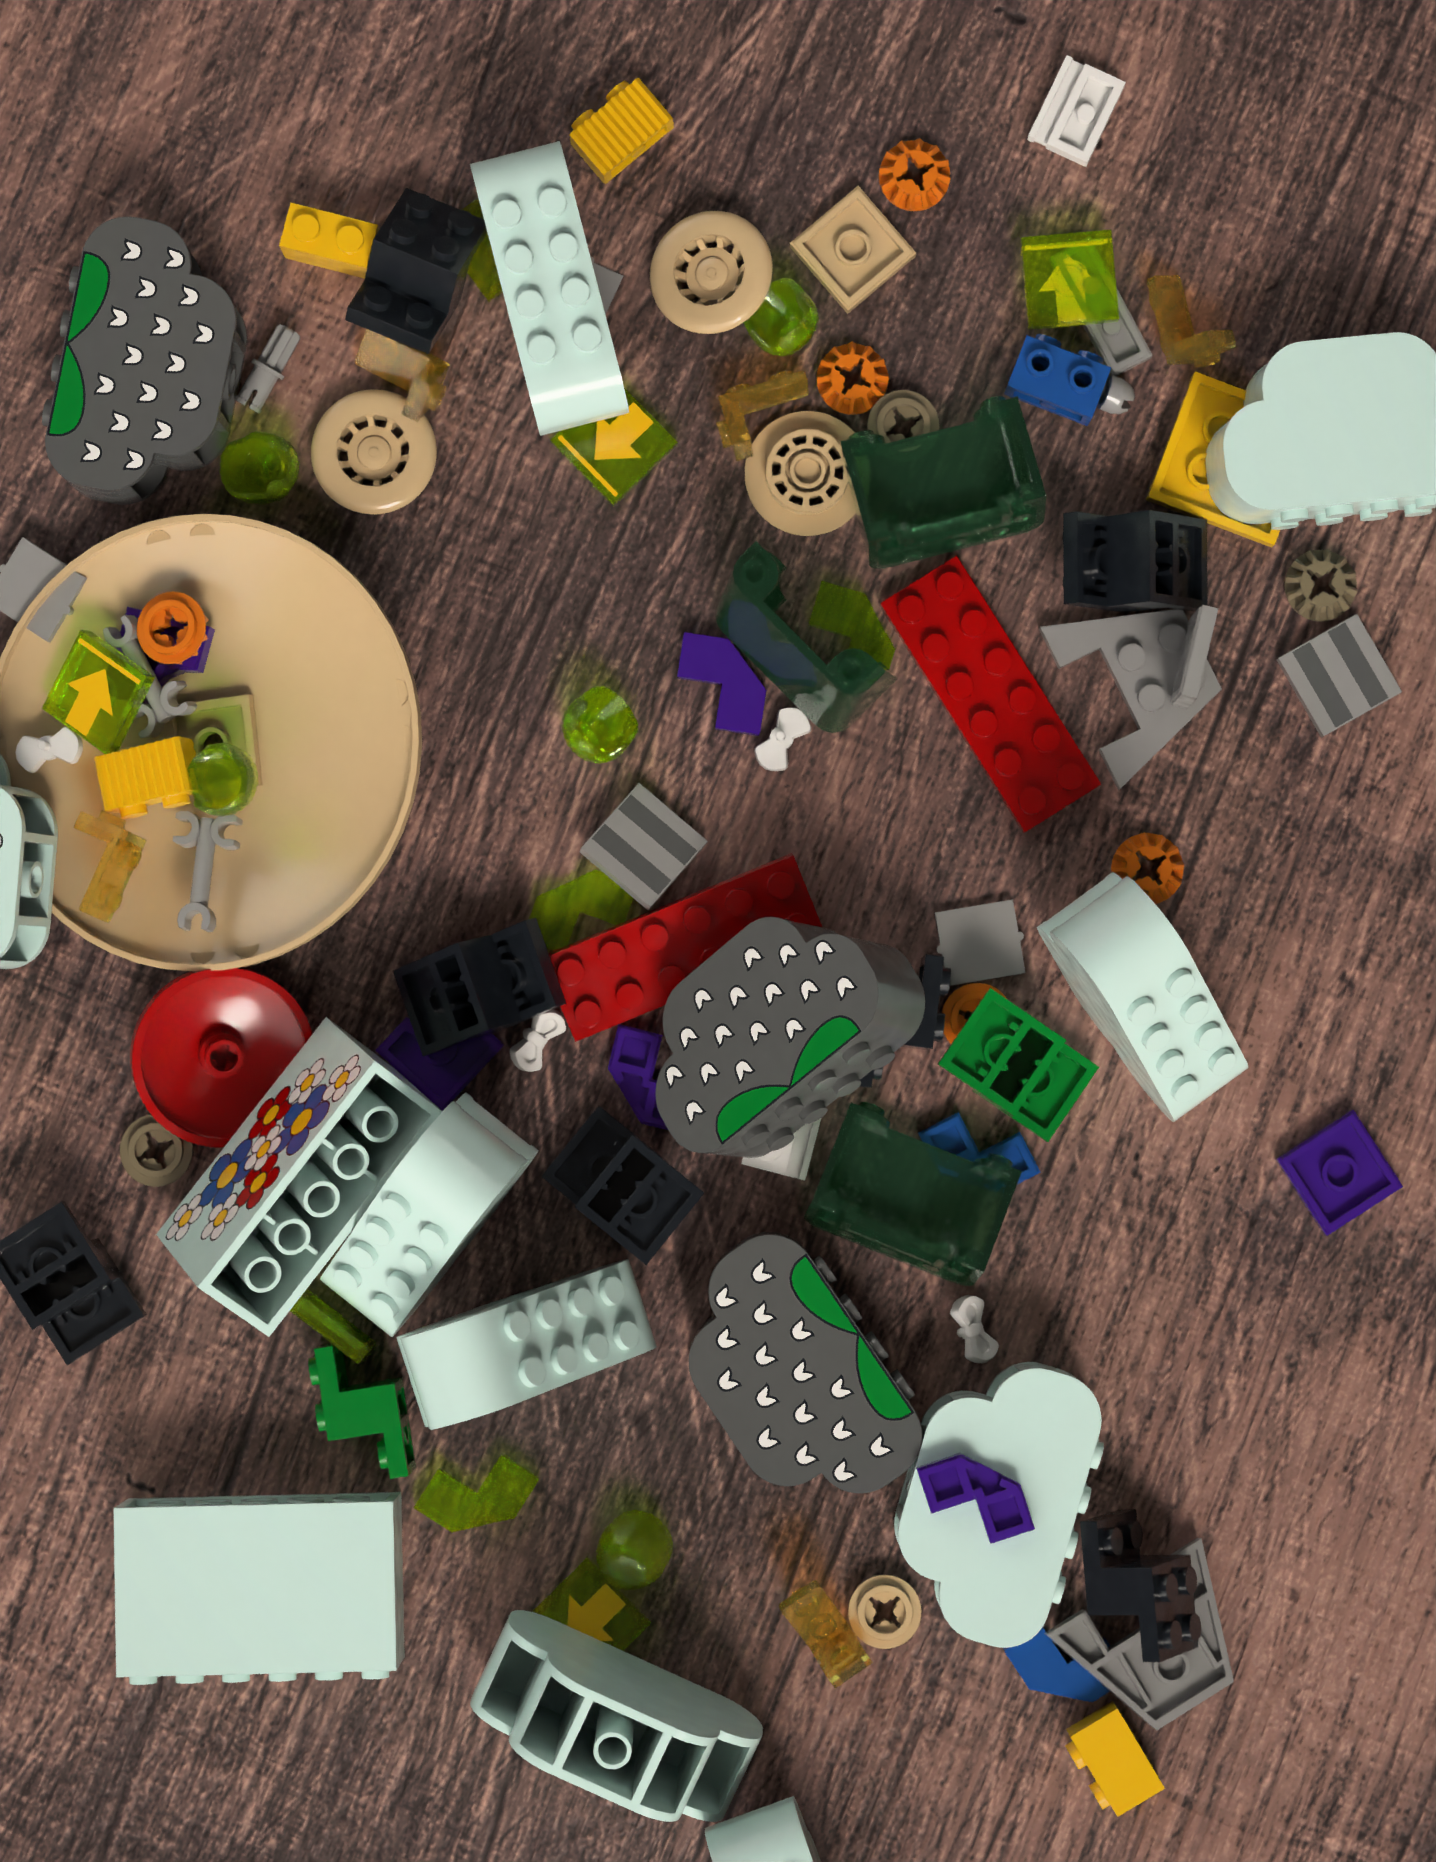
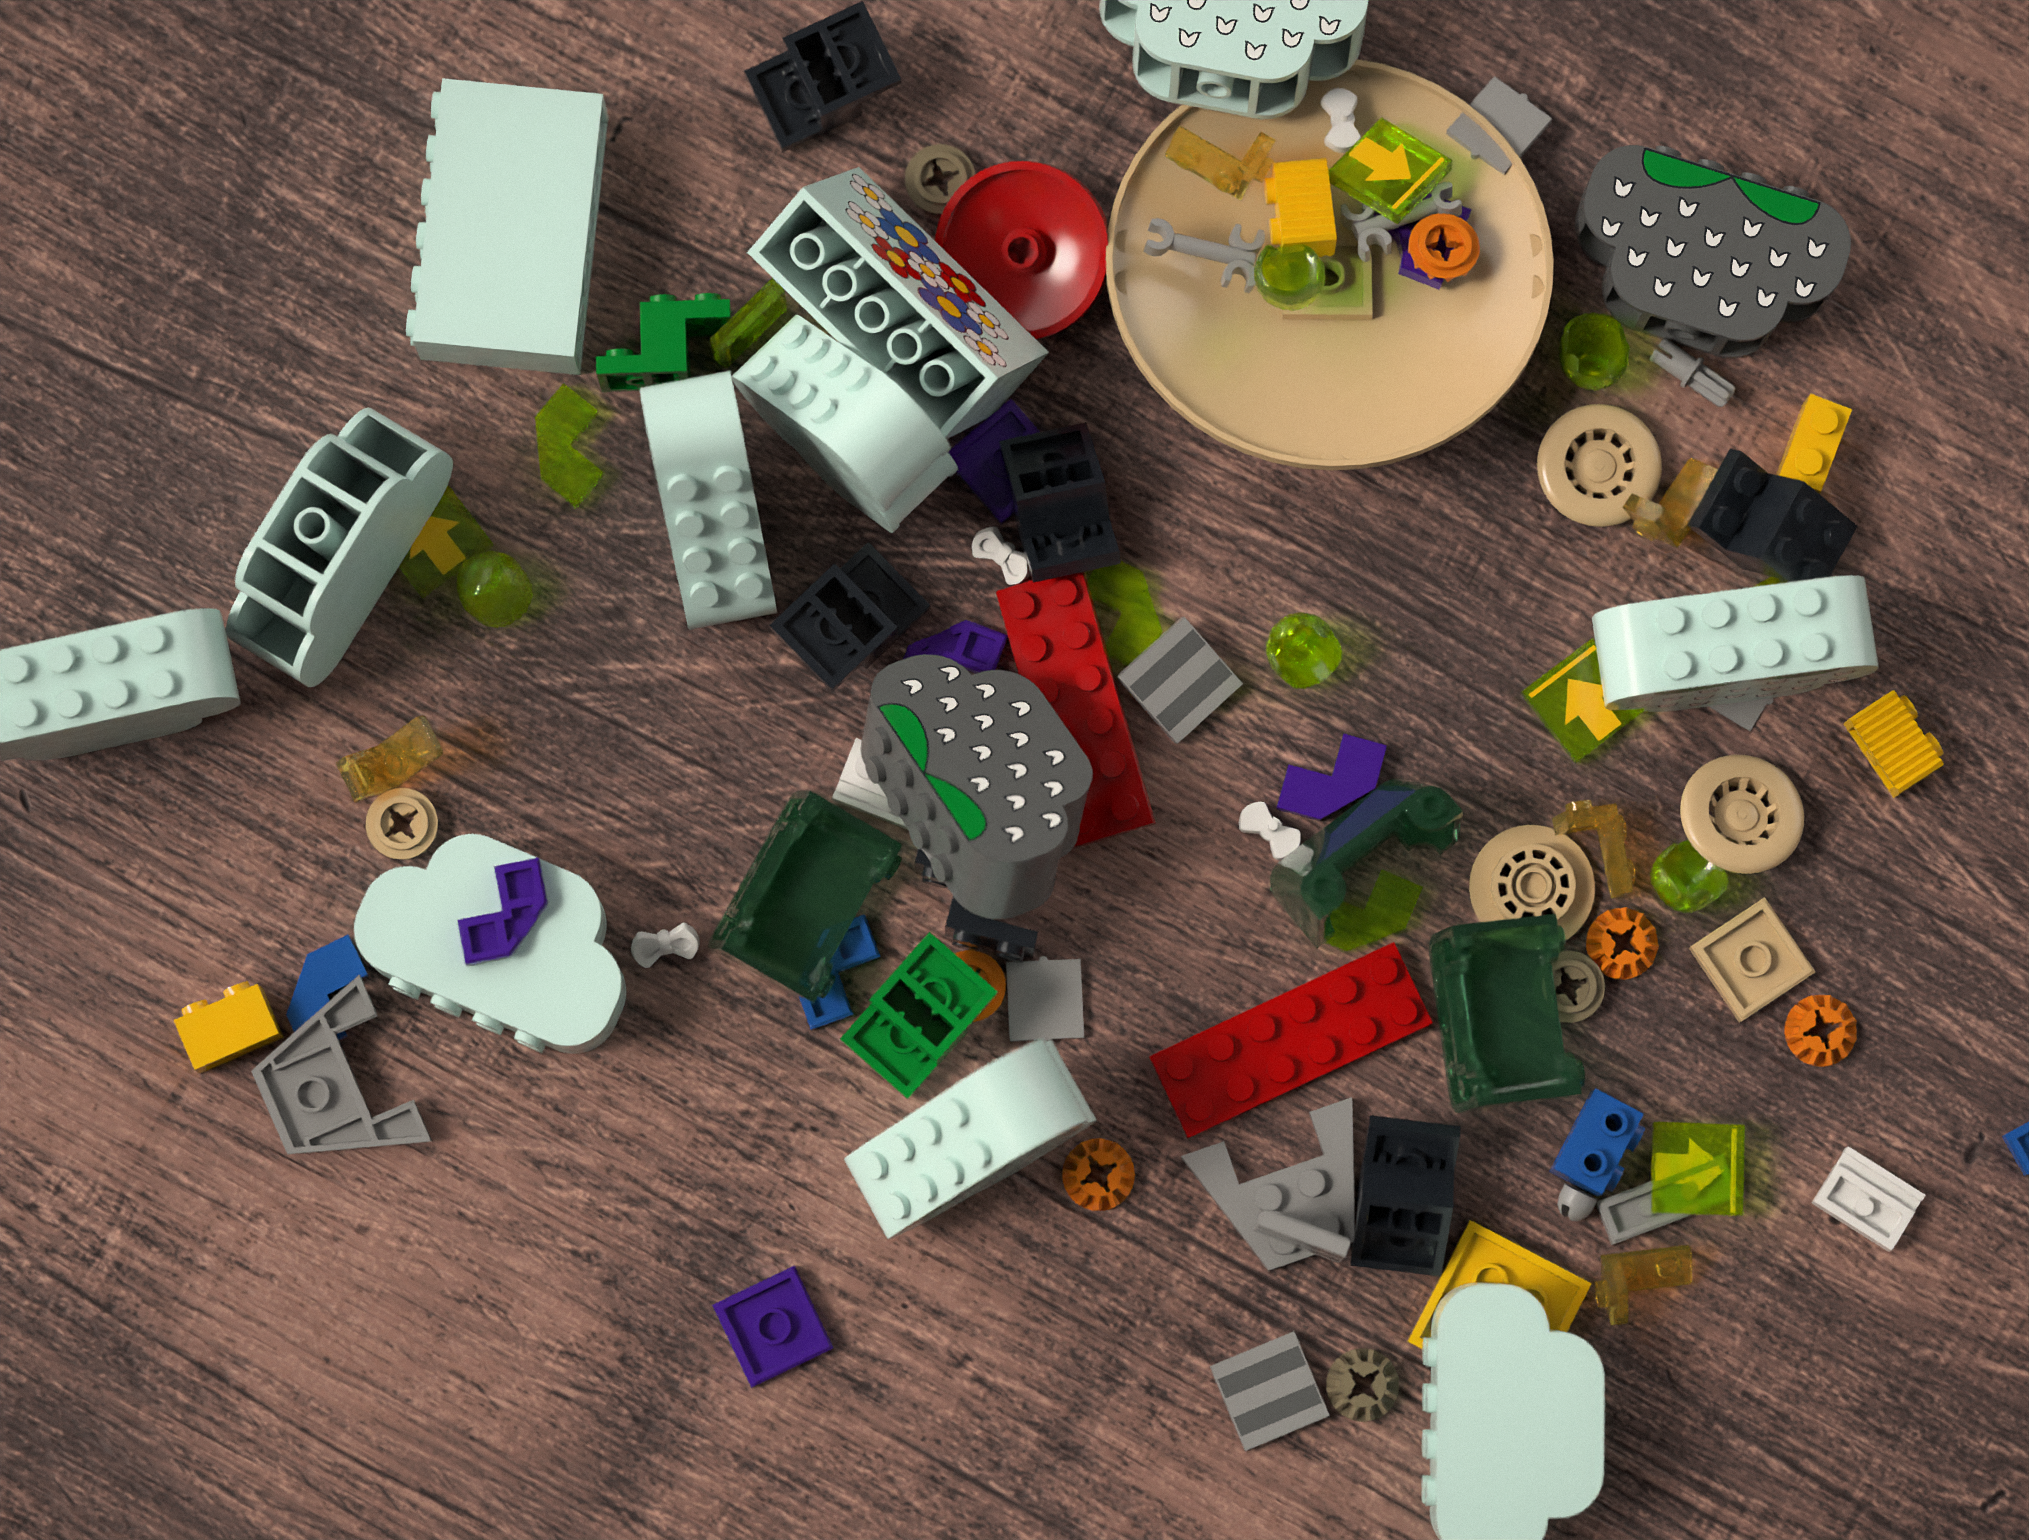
camera: 90 degrees right, 5 degrees down
(798, 1374) = (647, 763): dark grey brick -> none
(1142, 1585) = (401, 1056): black bracket -> none

